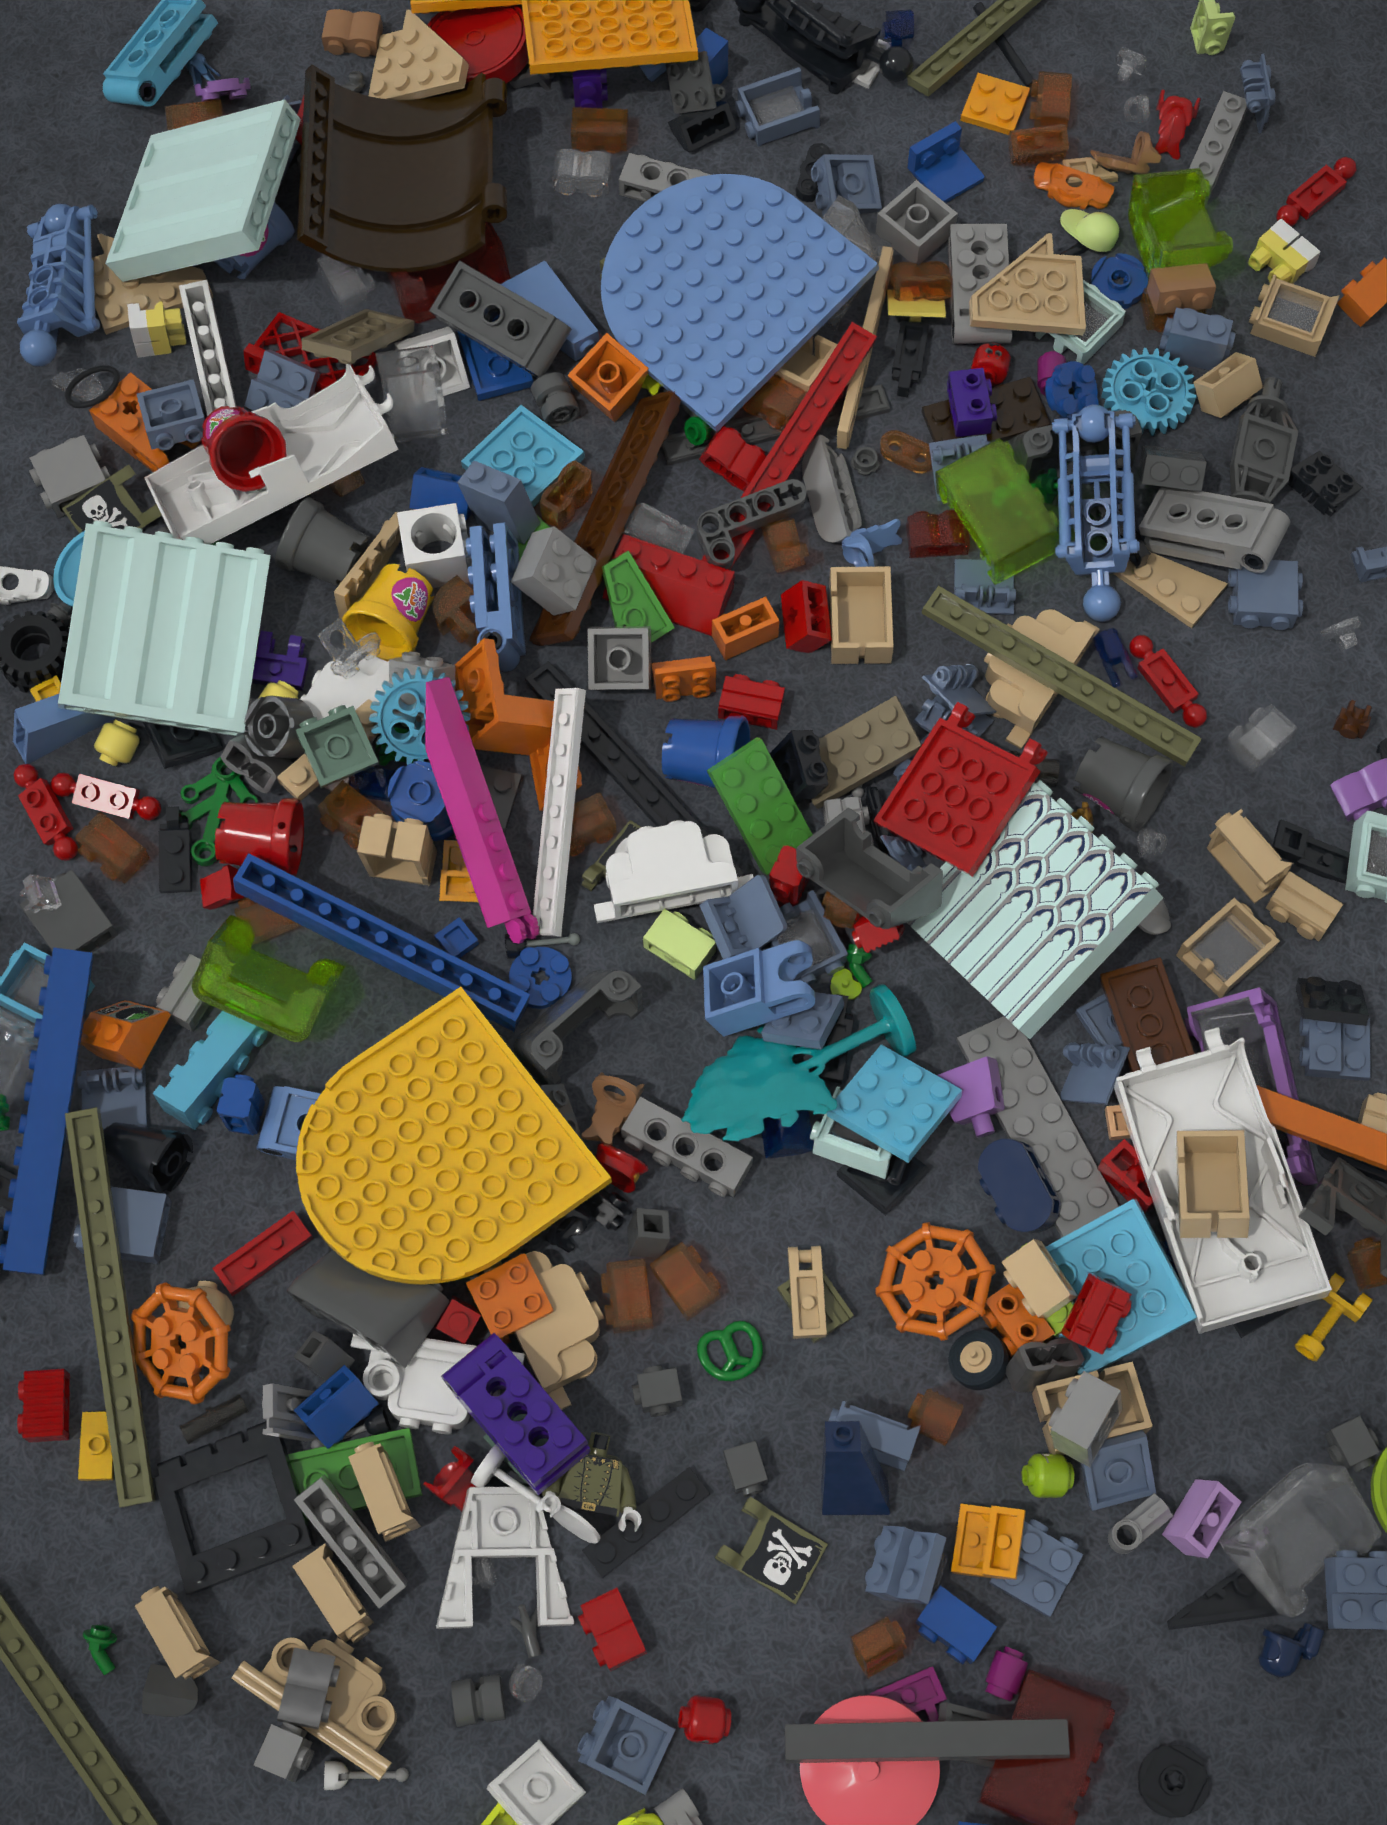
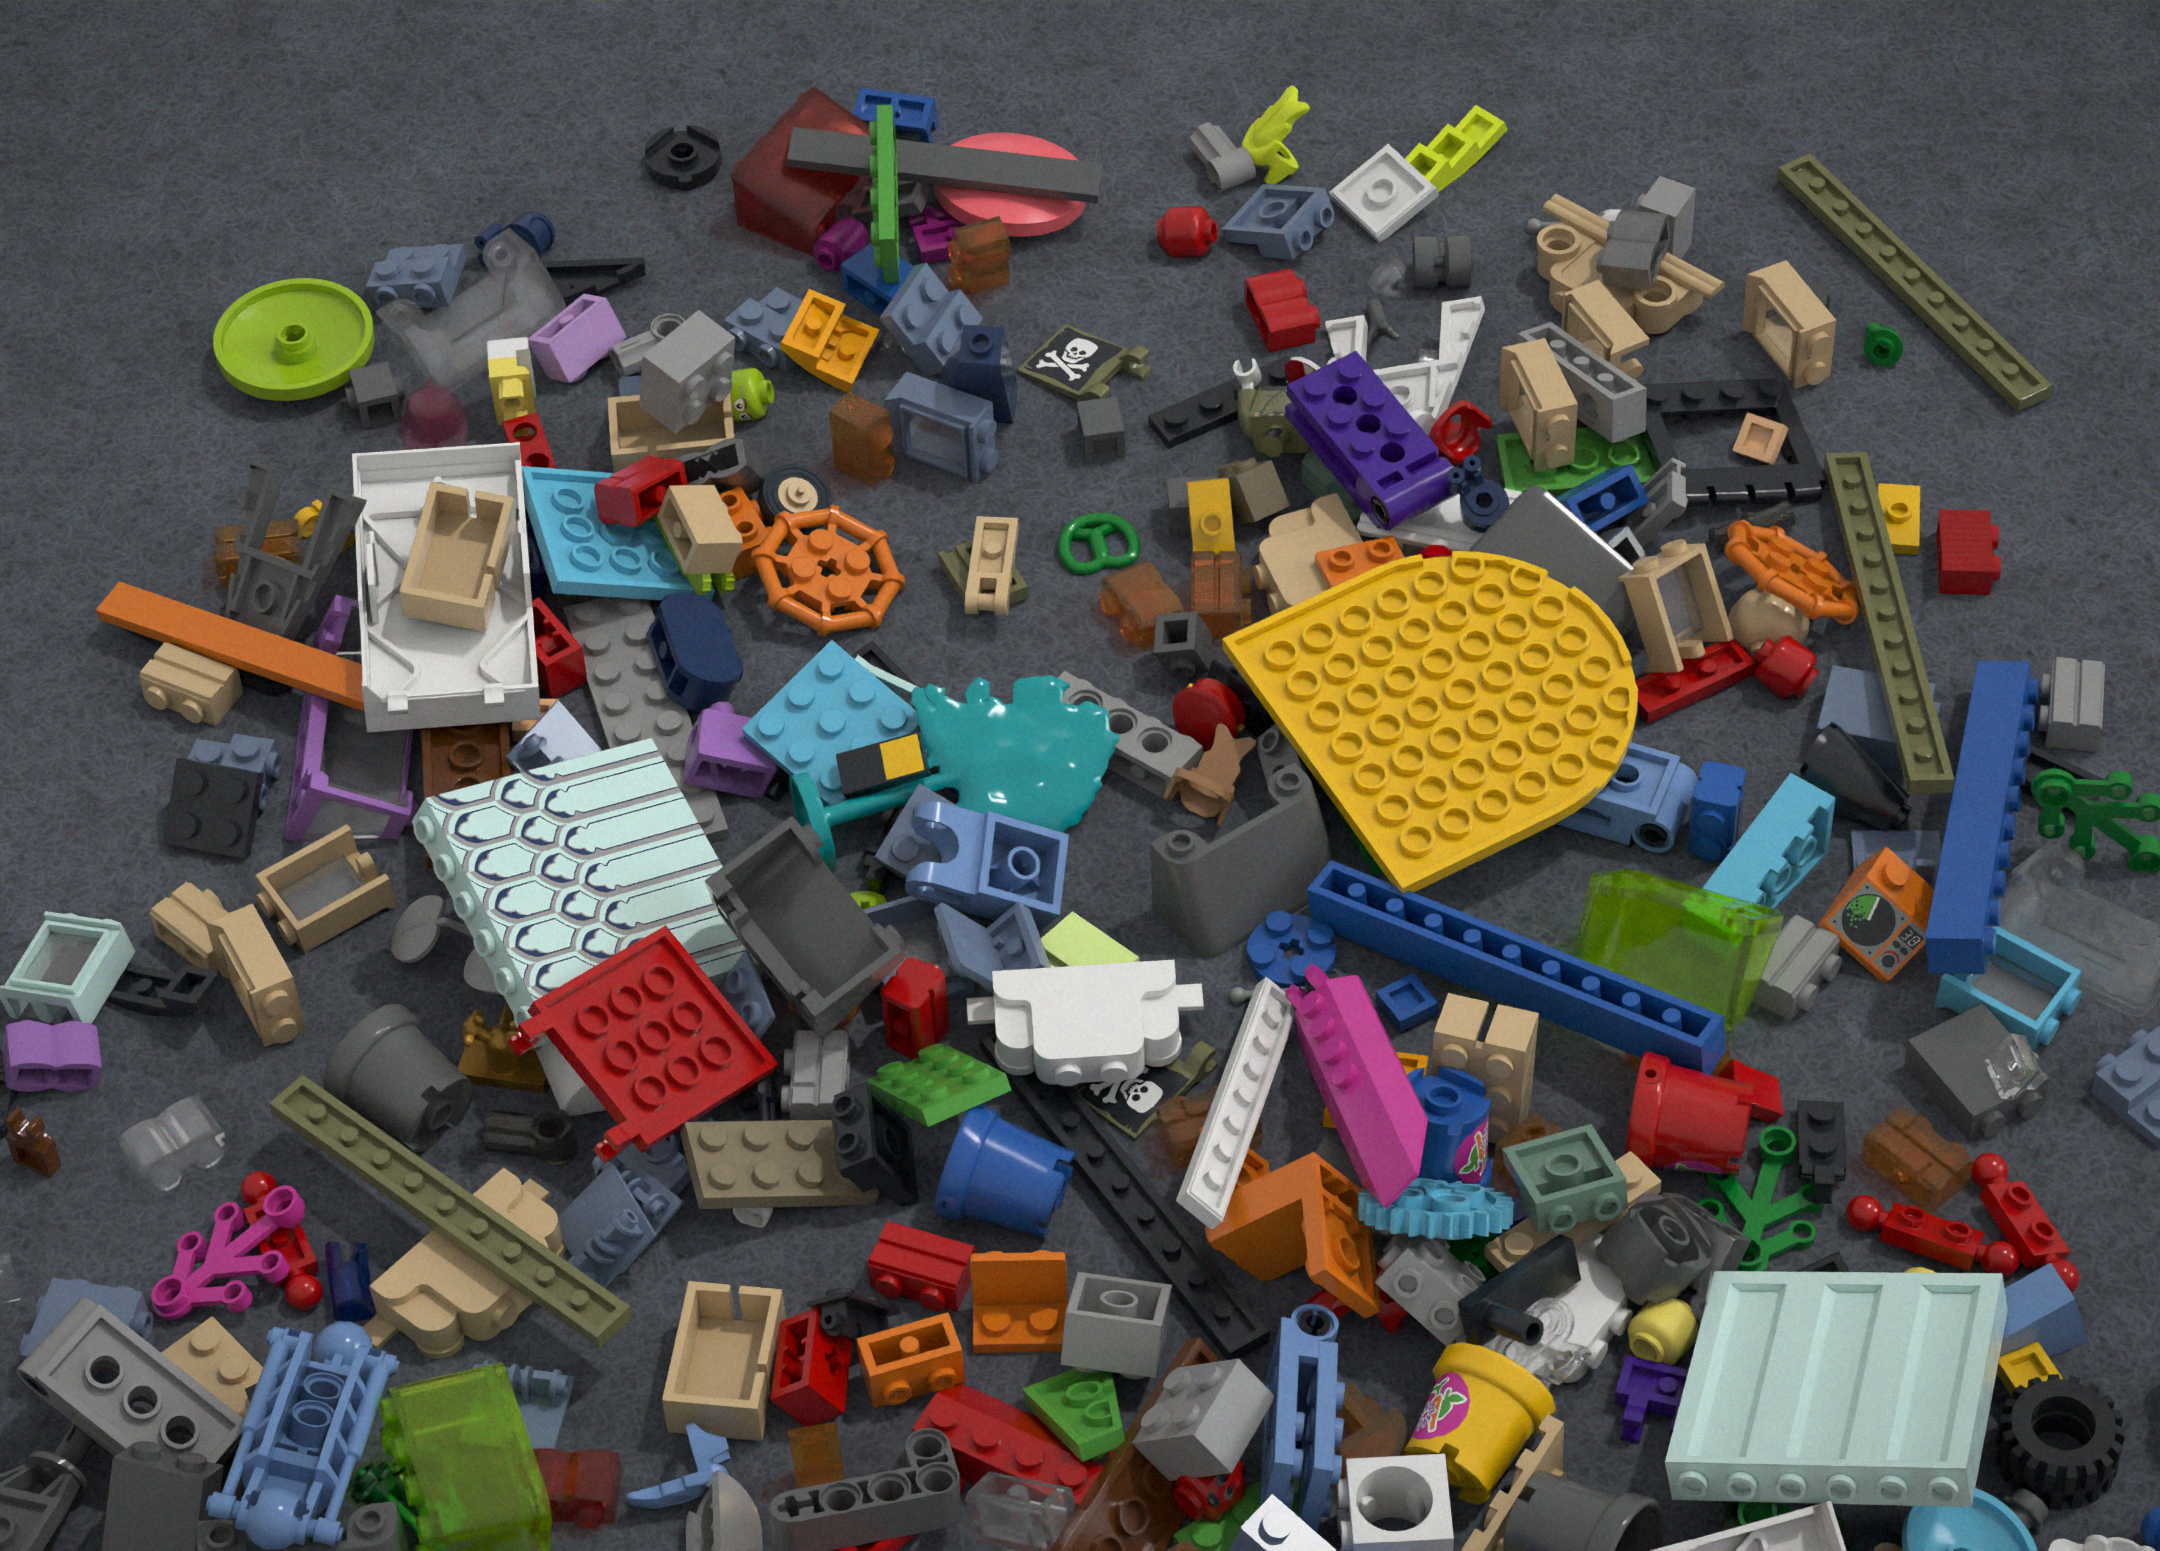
camera: 170 degrees left, 20 degrees down
(189, 1262) = (1785, 666): none -> red head
(205, 1514) = (1760, 439): none -> light nougat plate
(278, 1284) = (1676, 605): none -> tan window
(381, 653) = (1501, 1302): none -> black piece
(424, 1362) = (1480, 498): none -> dark blue piece
(618, 1411) = (1253, 489): none -> dark tan slope
(641, 1361) = (1210, 515): none -> yellow plate
(787, 648) = (851, 1315): none -> black hinge
(848, 1057) = (883, 765): none -> black tile
(968, 1671) = (885, 194): none -> bright green plate
(1199, 655) = (183, 1290): none -> dark pink plant
(1205, 1392) = (534, 447): none -> red leg
(1241, 1446) = (511, 380): none -> light yellow hips
(1294, 1429) = (434, 419): none -> clear pink piece

